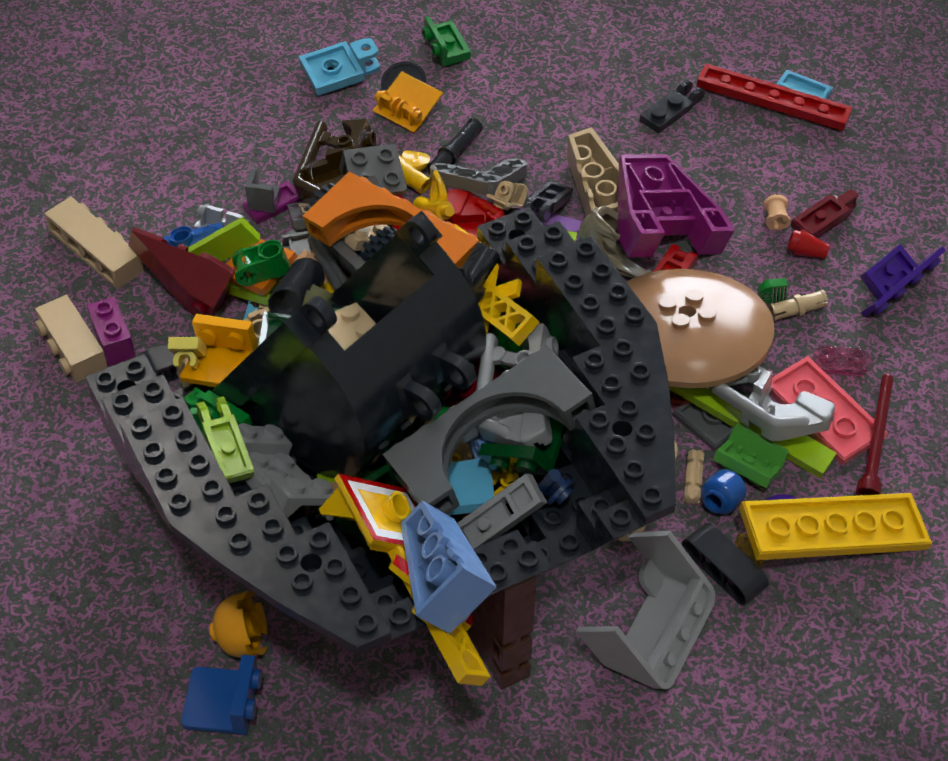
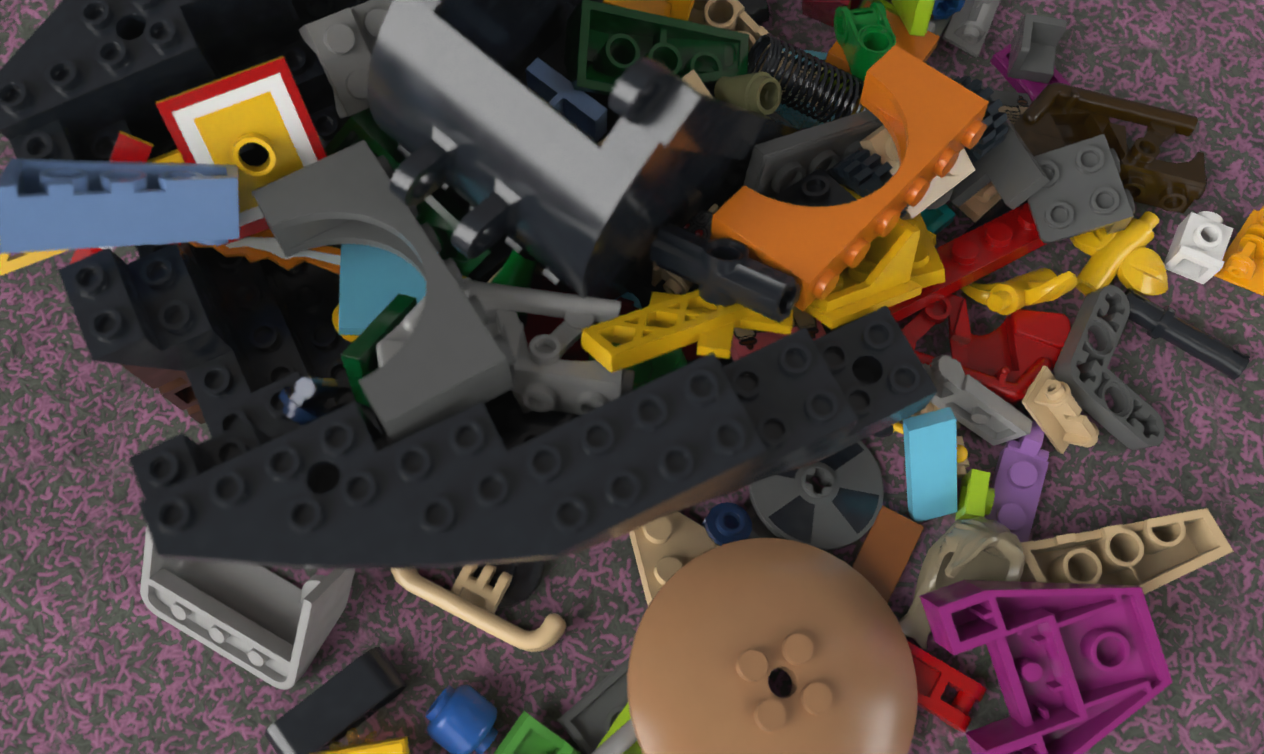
camera: 95 degrees right, 20 degrees up
(399, 132) = (1199, 246): none -> white brick
(493, 516) = (311, 326): light grey hinge -> none
(548, 199) = (1061, 473): black hinge -> none
(693, 477) = (503, 679): tan axle -> none

